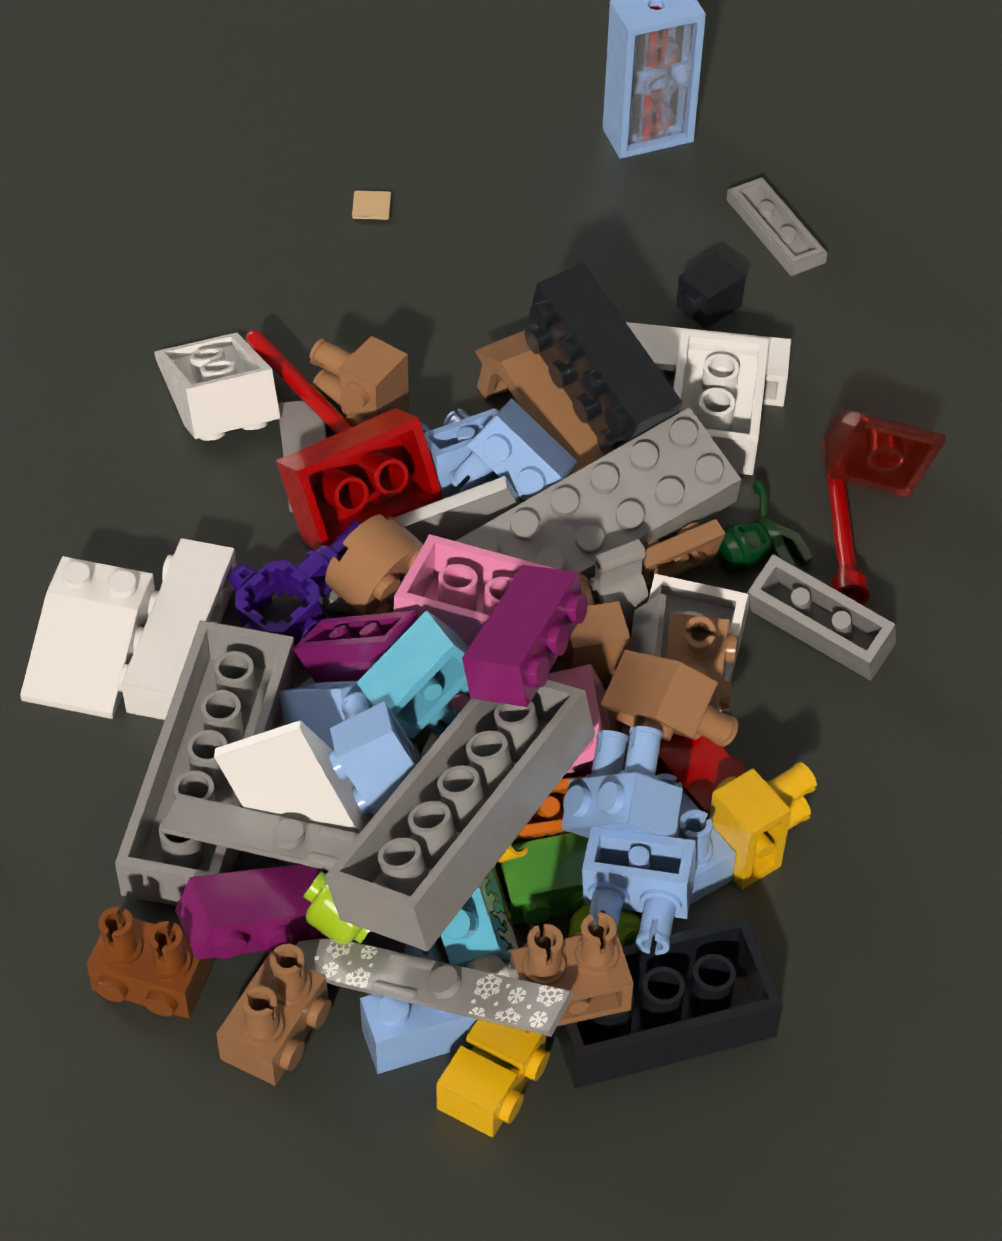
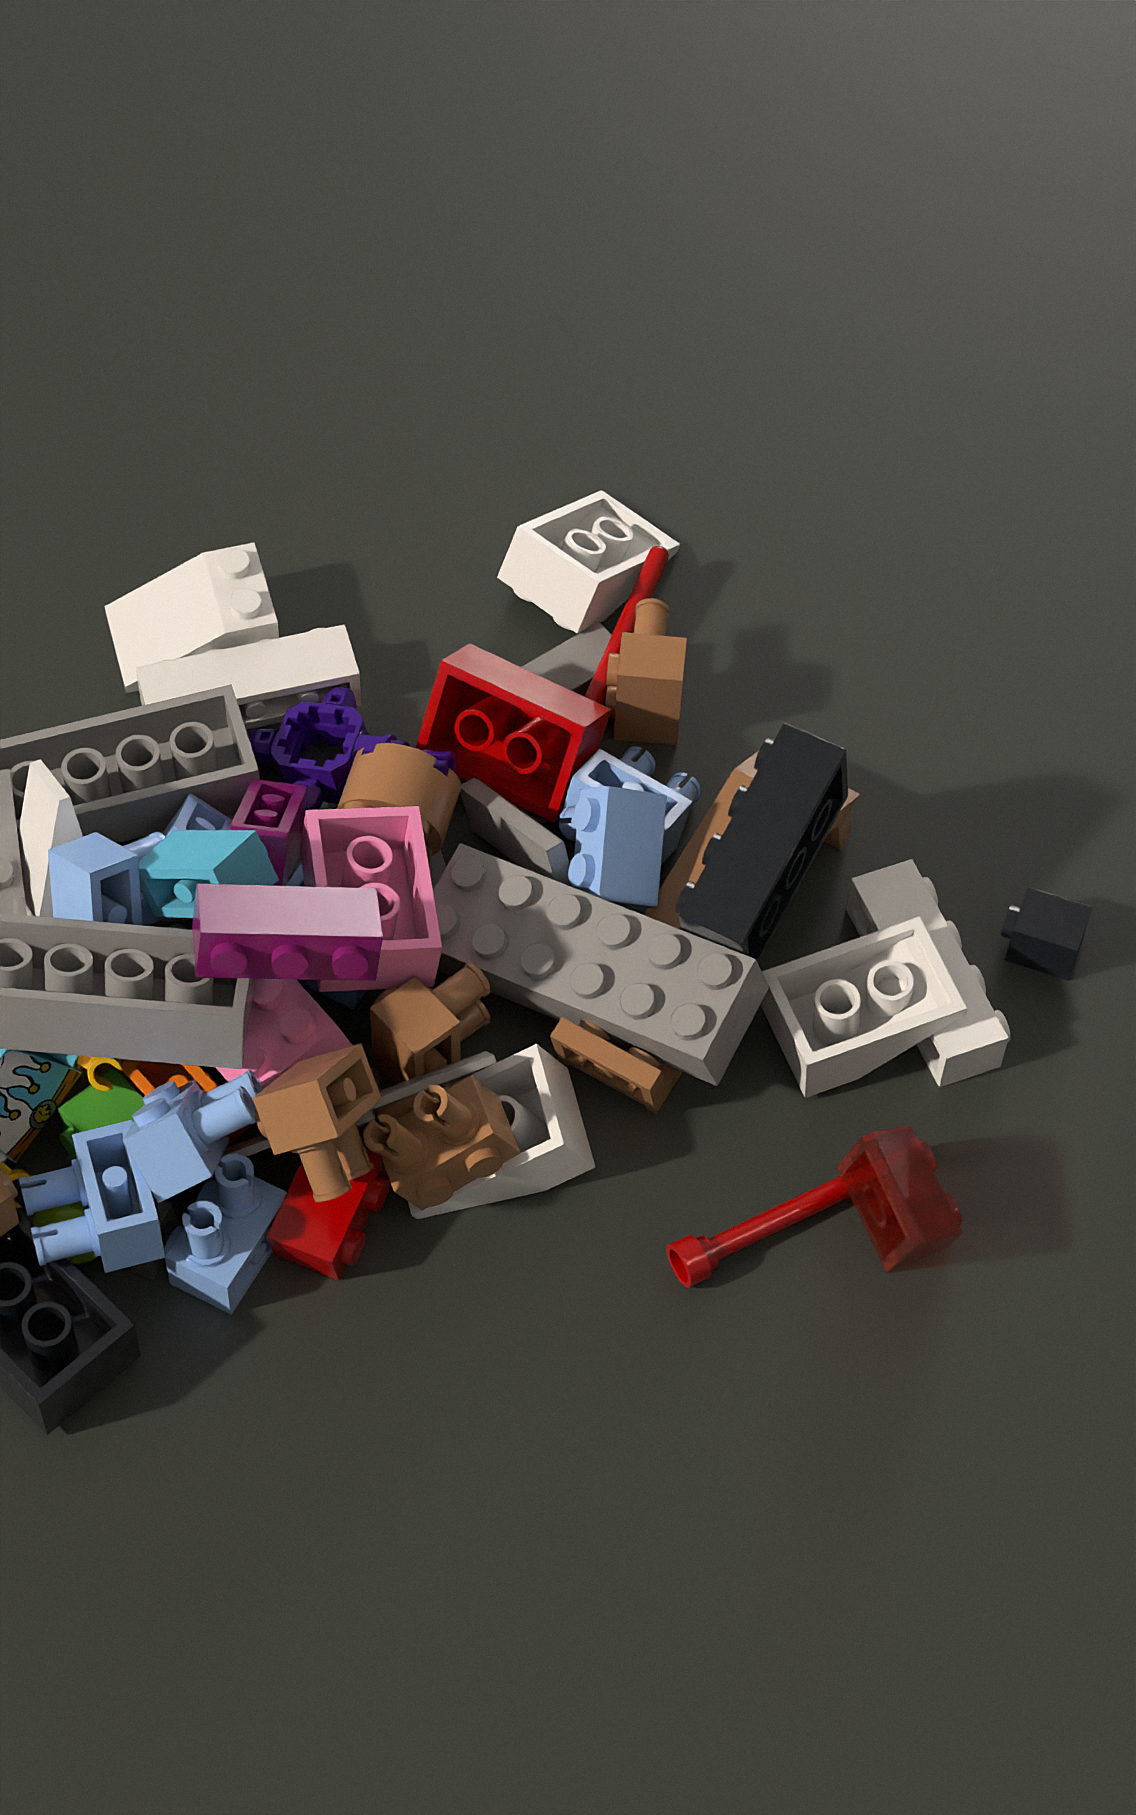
camera: 60 degrees right, 5 degrees up
(371, 205) = (952, 569): tan piece -> none
(620, 579) = (500, 1018): light grey piece -> none
(755, 541) = (692, 1133): dark green piece -> none
(757, 817) = (272, 1290): yellow brick -> none
(822, 617) = (610, 1243): light grey brick -> none

